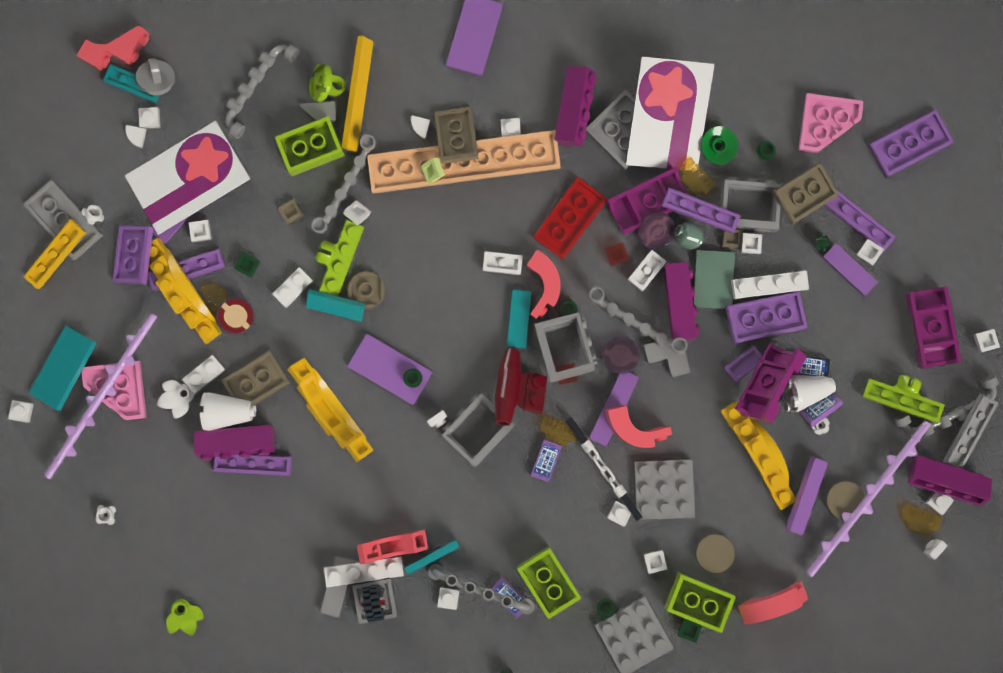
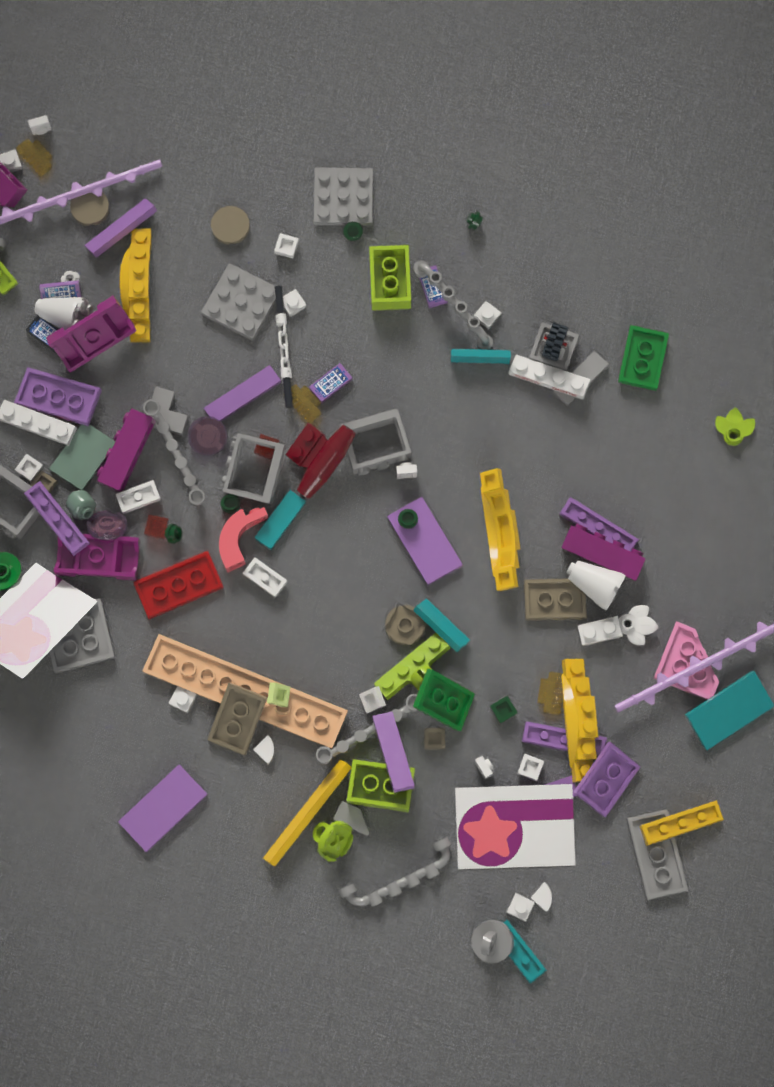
camera: 150 degrees left, 10 degrees down
(94, 210) = (620, 841): white plate -> none
(101, 510) = (765, 554): white plate -> none
(123, 48) = (509, 988): coral arch -> none
(235, 315) = (540, 668): tile -> none
(236, 209) = (485, 767): none -> white plate
(292, 287) = (472, 666): white plate -> none
(293, 635) = (643, 357): none -> green plate
(296, 241) = (443, 700): none -> green plate
(312, 175) = (393, 752): none -> medium lavender tile
(392, 546) = (508, 383): coral arch -> none
(575, 106) = (110, 681): magenta brick -> none
(599, 256) = (173, 533): none -> dark green plate
(620, 424) = (245, 374): coral arch -> none
(689, 630) = (291, 175): dark green plate -> none
(692, 180) = (46, 556): clear yellow piece -> none
(699, 602) = (269, 190): lime brick -> none
(743, 364) = (103, 368): medium lavender tile -> none
(773, 605) = (206, 152): coral arch -> none

